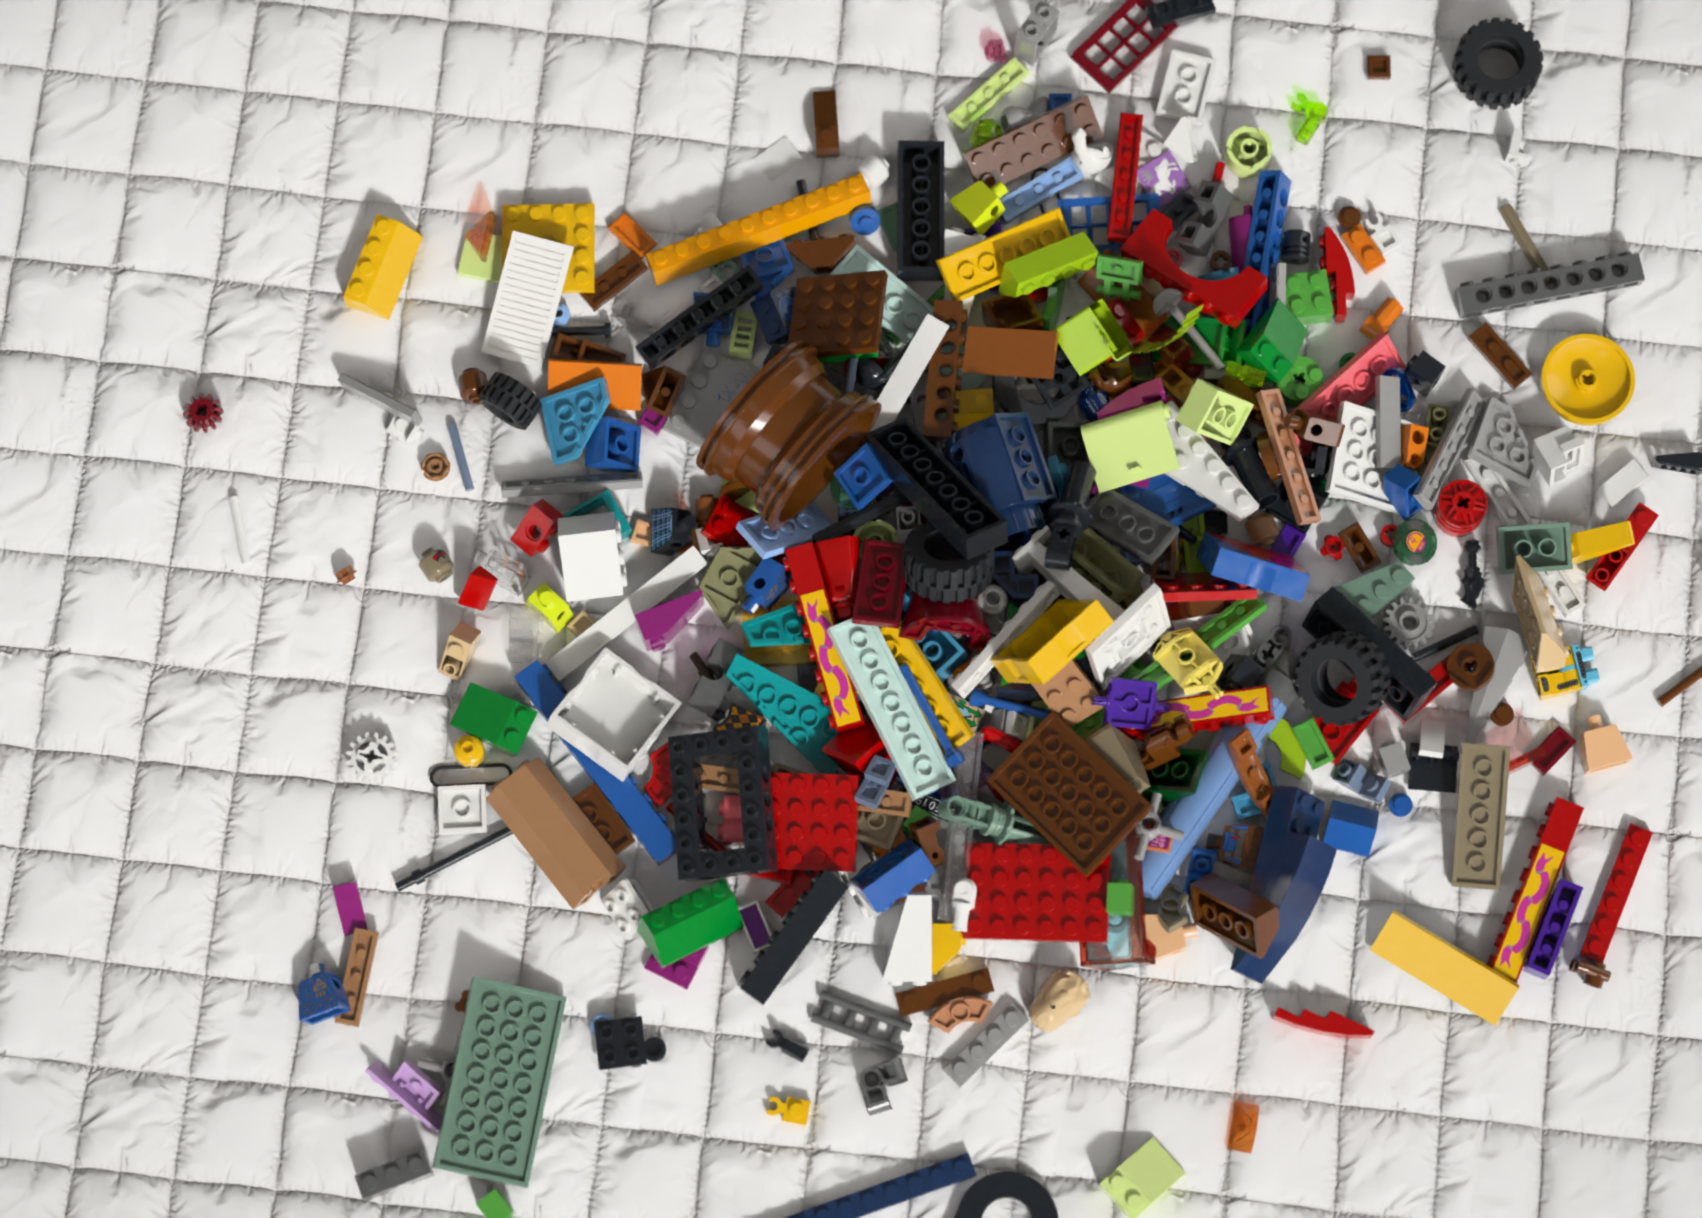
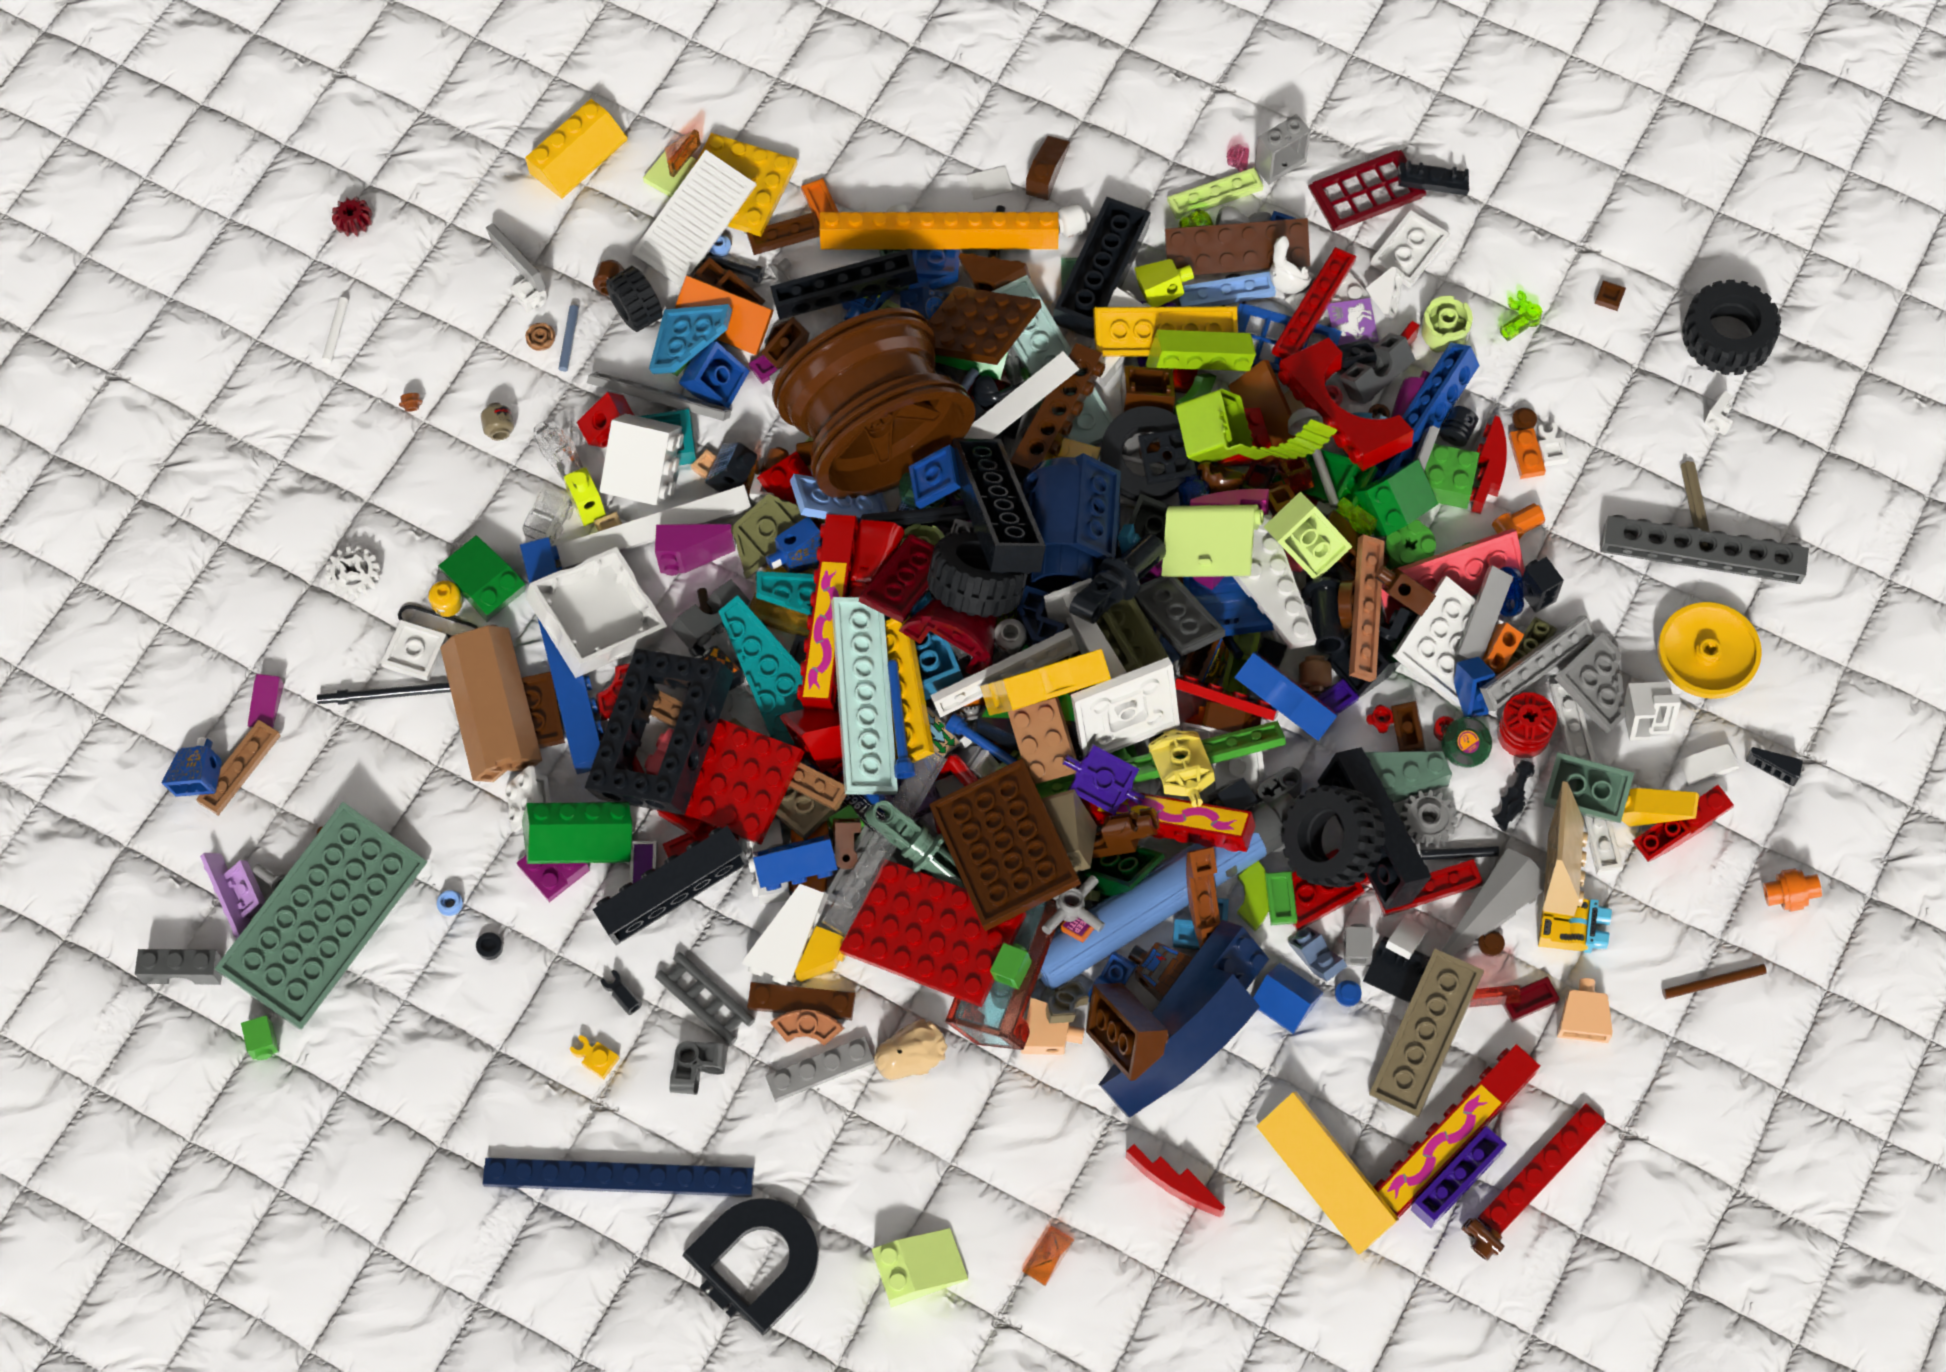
camera: 25 degrees right, 10 degrees down
(459, 651) = (481, 505): tan slope -> none
(478, 589) = (523, 454): red slope -> none
(620, 1043) = (457, 924): black hinge -> none
(864, 219) = (1045, 259): blue wheel -> none
(876, 782) = (817, 763): sand blue slope -> none
(963, 900) = (853, 910): white arm -> none
(1010, 352) = (1128, 413): dark orange tile -> none
(1120, 270) = (1271, 379): bright green plate -> none
(1467, 654) = (1478, 867): reddish brown plate -> none
(1499, 356) = (1627, 598): reddish brown plate -> none

